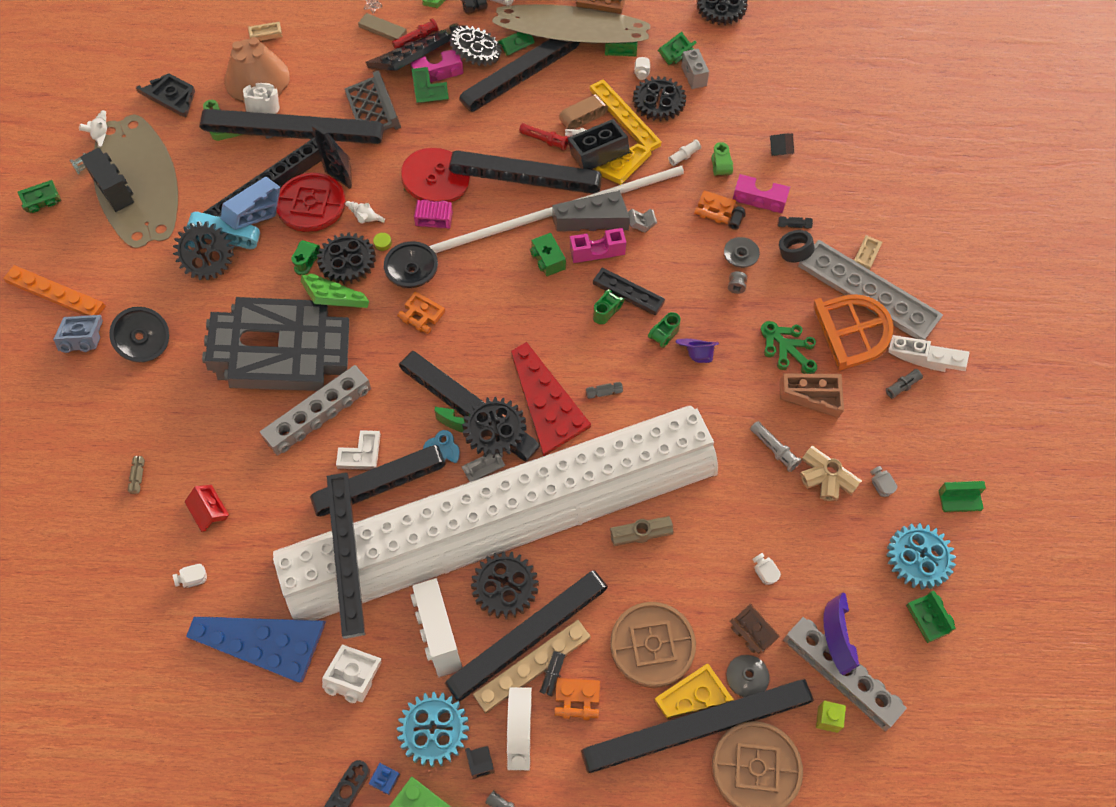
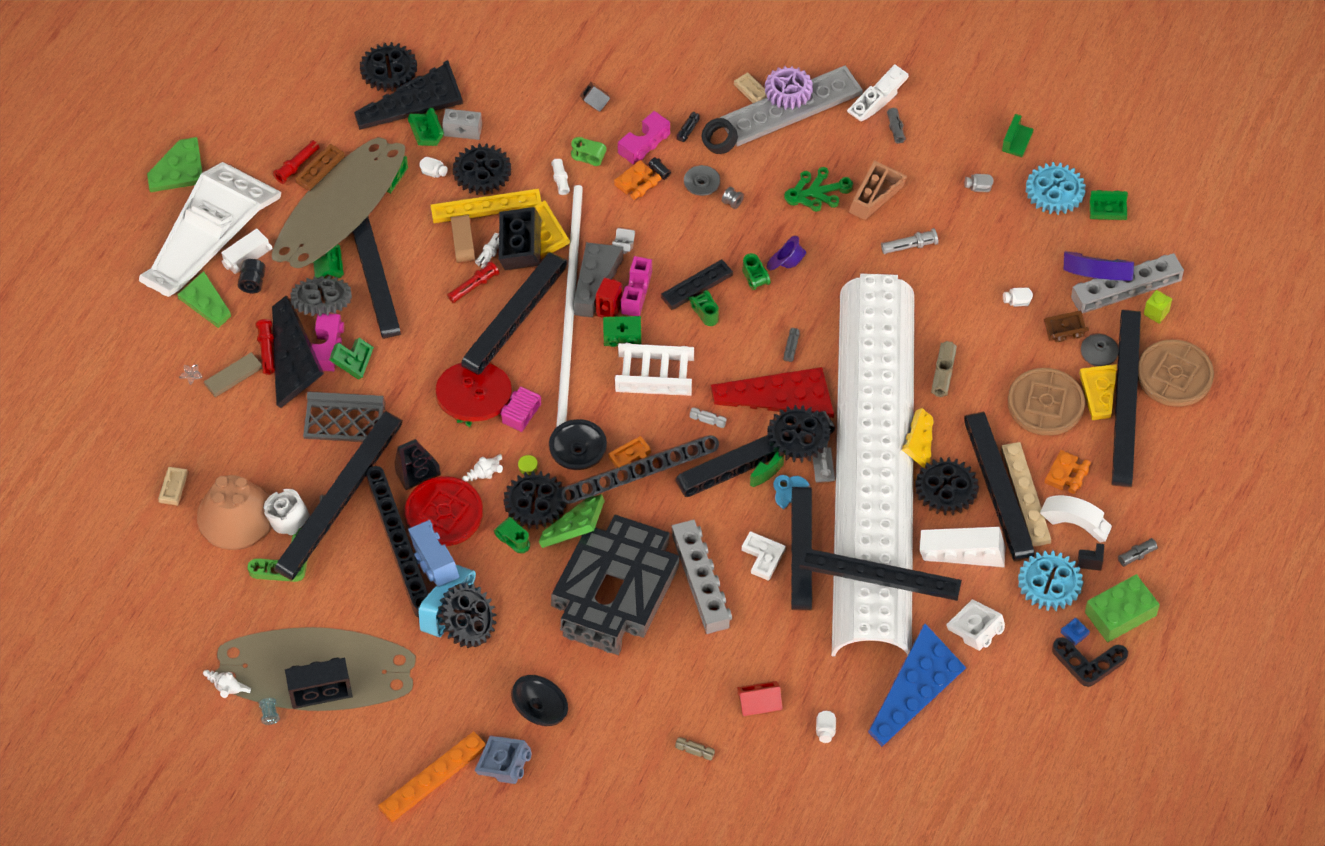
camera: 65 degrees left, 5 degrees down
(39, 196) = (296, 761): green bracket -> none
(170, 93) = (213, 601): black wing -> none
(410, 321) = (646, 469): none -> black beam
(491, 353) = (708, 417): none -> light grey axle
(508, 305) = (654, 385): none -> white fence
(547, 538) = (920, 438): none -> yellow wing
(552, 673) = (1041, 478): black axle -> none
(570, 225) = (608, 298): none -> red brick
(710, 35) = (433, 90): none -> black wing
(829, 481) = (953, 222): tan piece -> none
(832, 335) = (823, 152): orange window -> none
(879, 272) = (788, 87): none -> lavender gear

